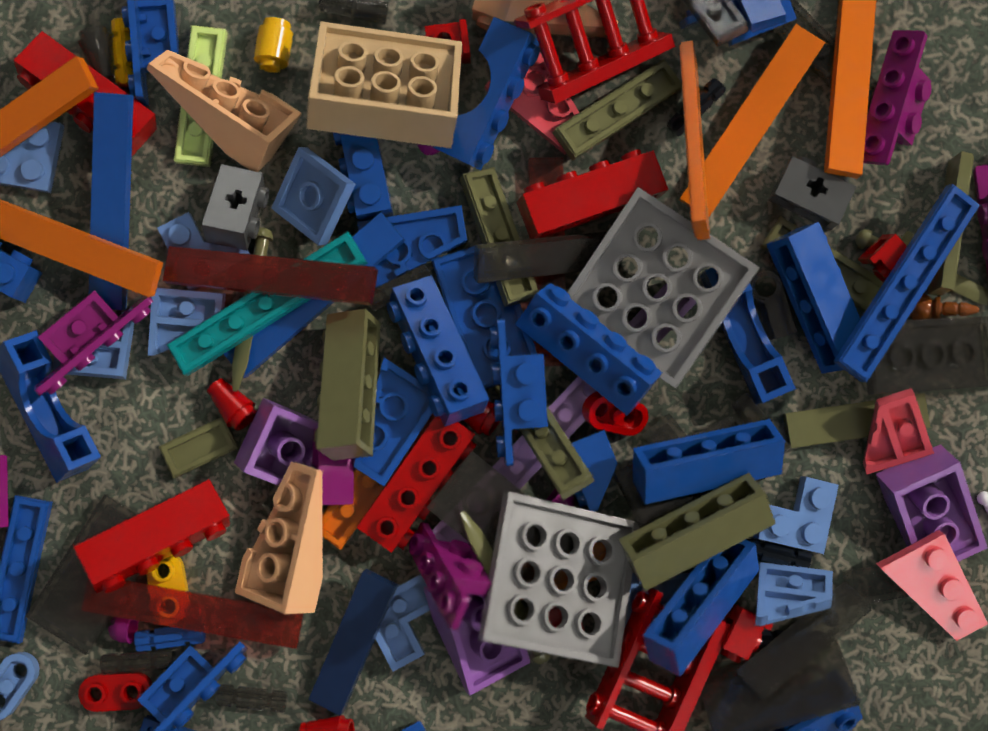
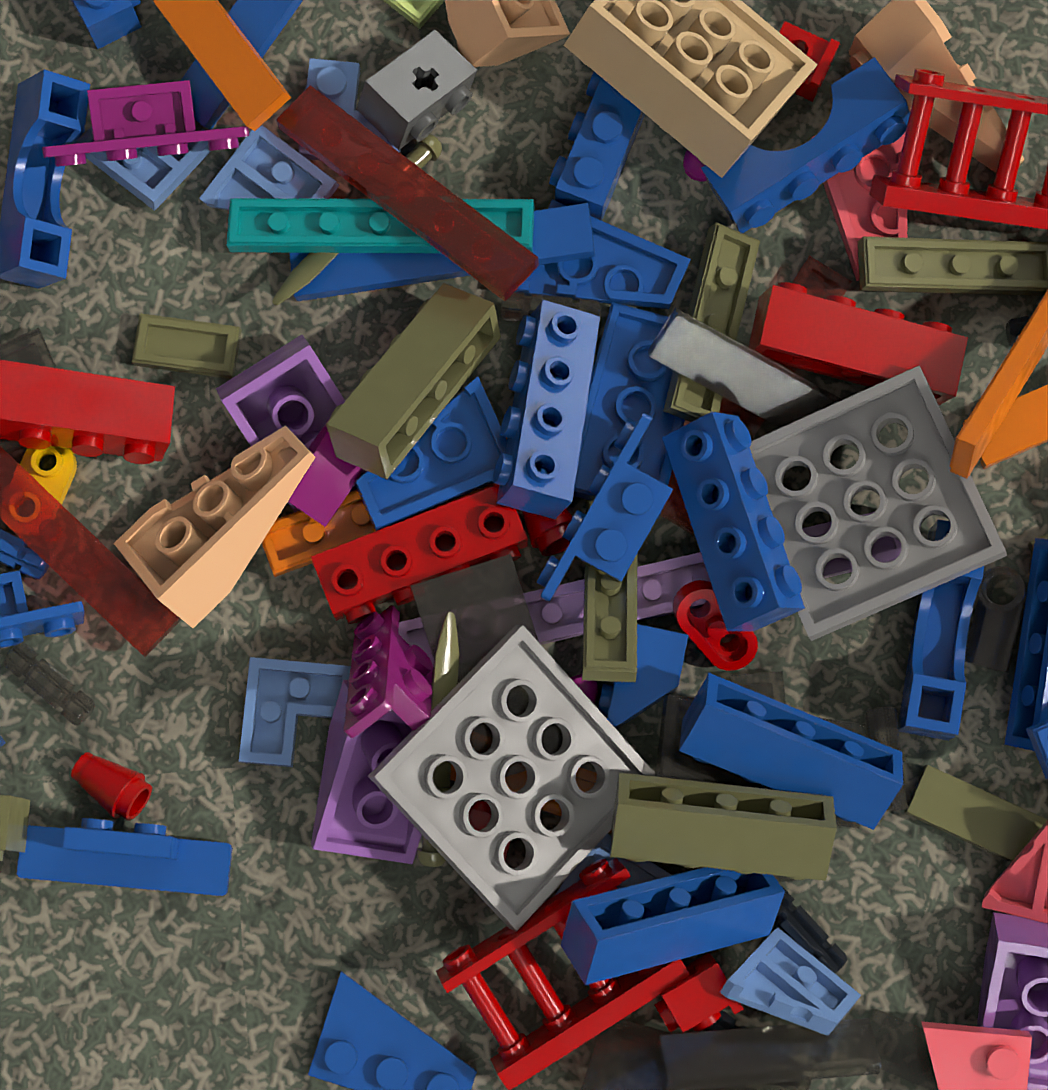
camera: 35 degrees right, 5 degrees down
(233, 406) = (260, 322): red cone -> none
(313, 196) = (519, 134): medium blue plate -> none
(353, 642) = (215, 693): dark blue tile -> none
(808, 522) = (867, 918): medium blue plate -> none

